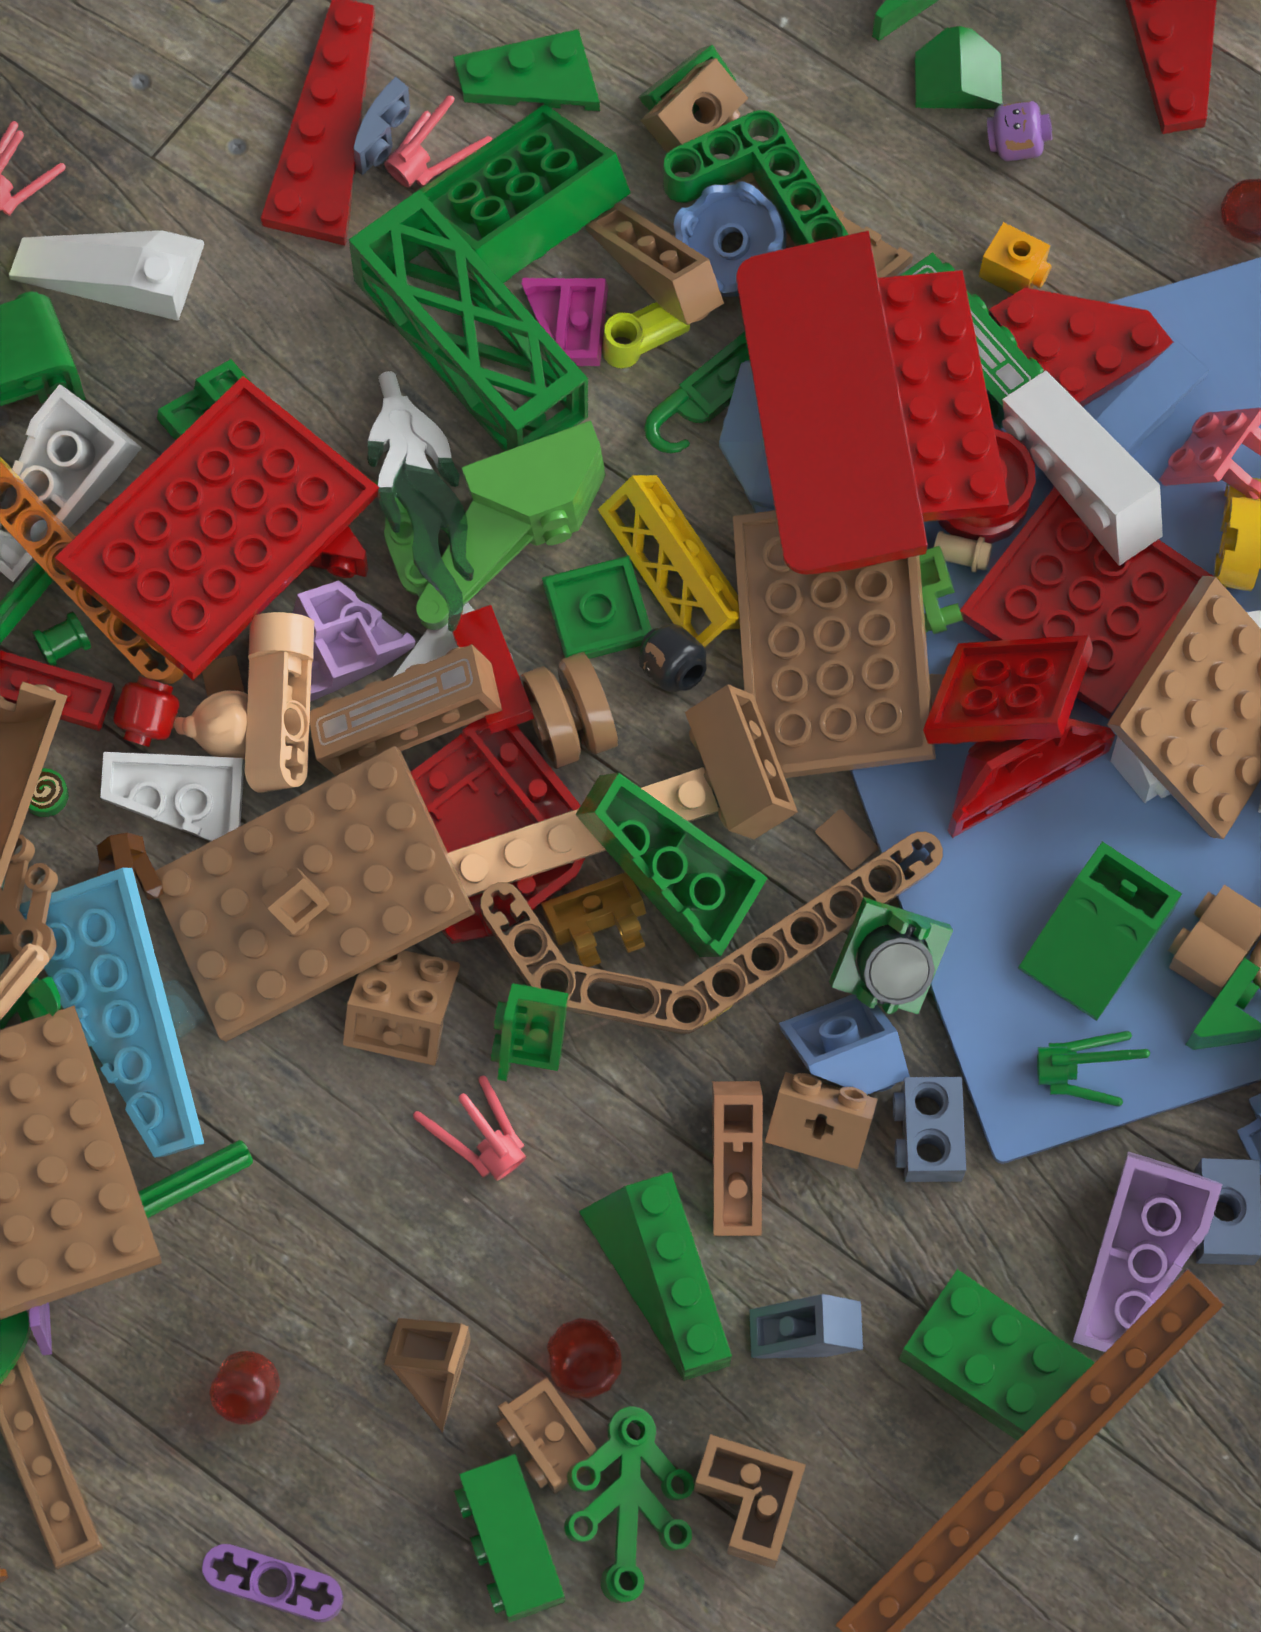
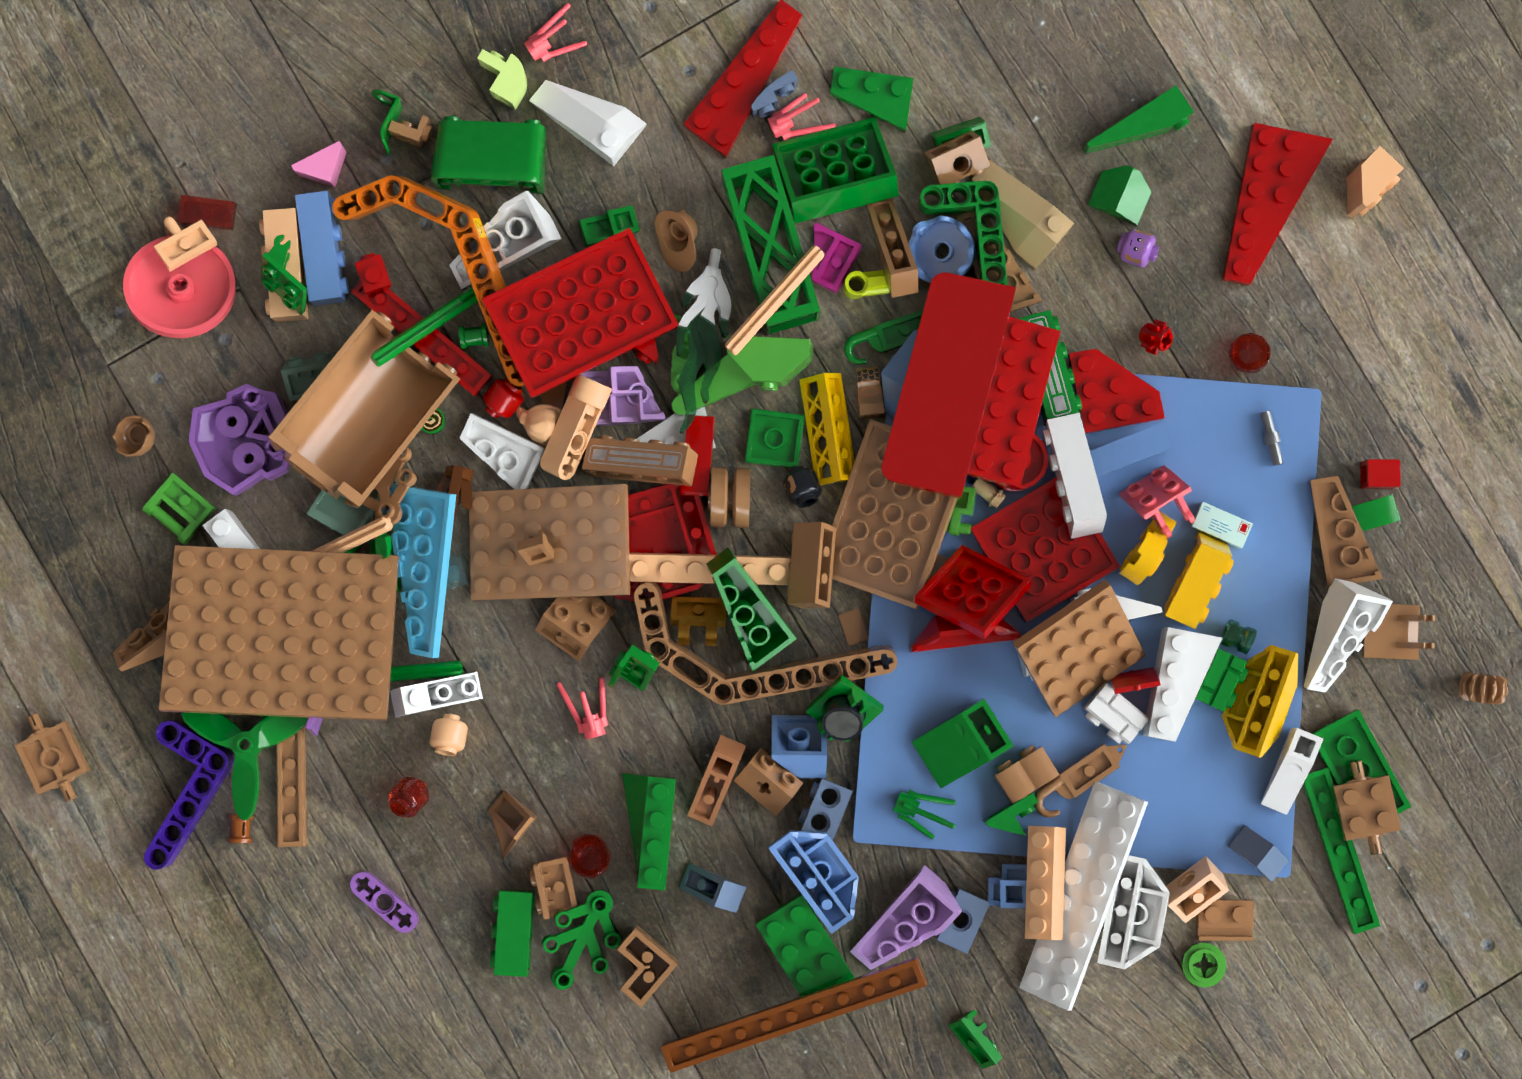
camera: 20 degrees right, 15 degrees up
(221, 1209) = (436, 694): none -> white slope
(270, 1263) = (448, 735): none -> light nougat head
(320, 378) = (676, 238): none -> medium nougat piece
(511, 386) = (774, 300): none -> light nougat axle
(714, 485) = (869, 393): none -> medium nougat leg
(847, 152) = (1027, 218): none -> tan wedge
(967, 1224) = (819, 874): none -> medium blue wedge
(1015, 260) = (1099, 328): light orange brick -> none
(1105, 240) = (1155, 337): none -> red gear

